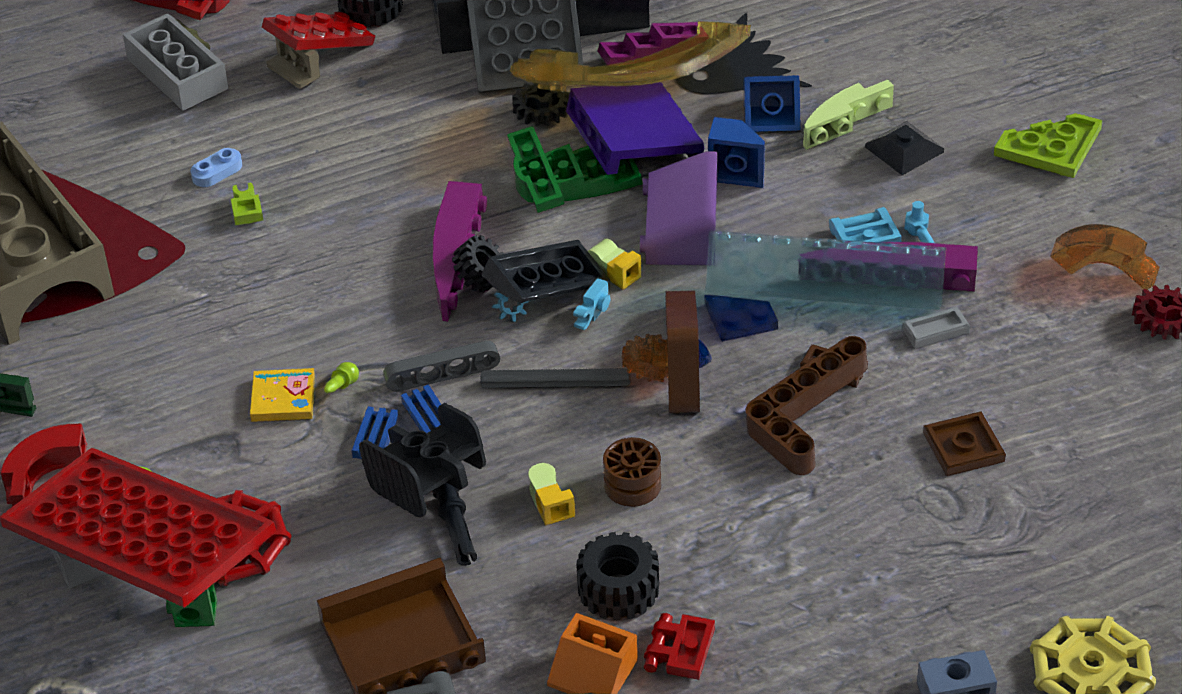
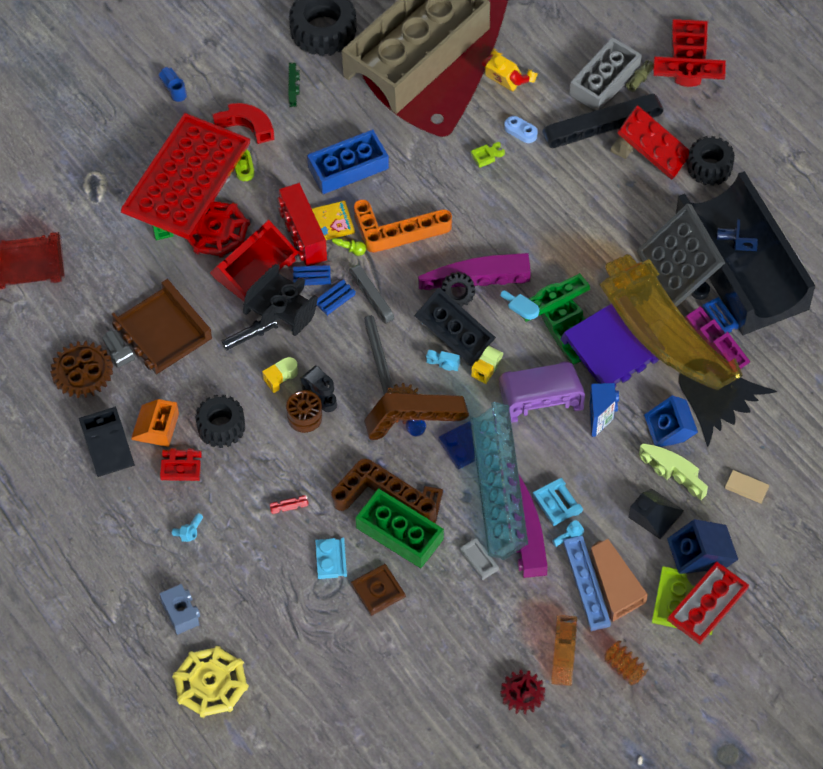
camera: 75 degrees right, 15 degrees up
(108, 158) = (505, 71): none -> yellow torso
(188, 349) = (348, 161): none -> blue brick
(248, 84) = (598, 121): none -> black beam
(286, 414) = (302, 224): none -> red brick
(318, 494) = (253, 259): none -> red windscreen
(331, 346) = (403, 231): none -> orange beam
(542, 194) = (521, 305): none -> medium azure piece
(595, 433) = (317, 382): none -> black piece
(609, 34) = (728, 328): none -> blue tile
(790, 522) = (288, 504): none -> axle
(813, 651) = (188, 531): none -> medium azure piece
(874, 392) = (399, 528): none -> green brick
(885, 60) = (747, 486): none -> tan tile
(898, 488) = (331, 558): none -> medium azure plate
(979, 103) = (701, 545): none -> dark blue slope
(1001, 224) = (586, 583): none -> medium blue plate
(1005, 194) = (617, 582): none -> nougat slope
(1065, 110) = (708, 602): none -> red piece
(1135, 205) = (624, 663): none -> clear orange piece

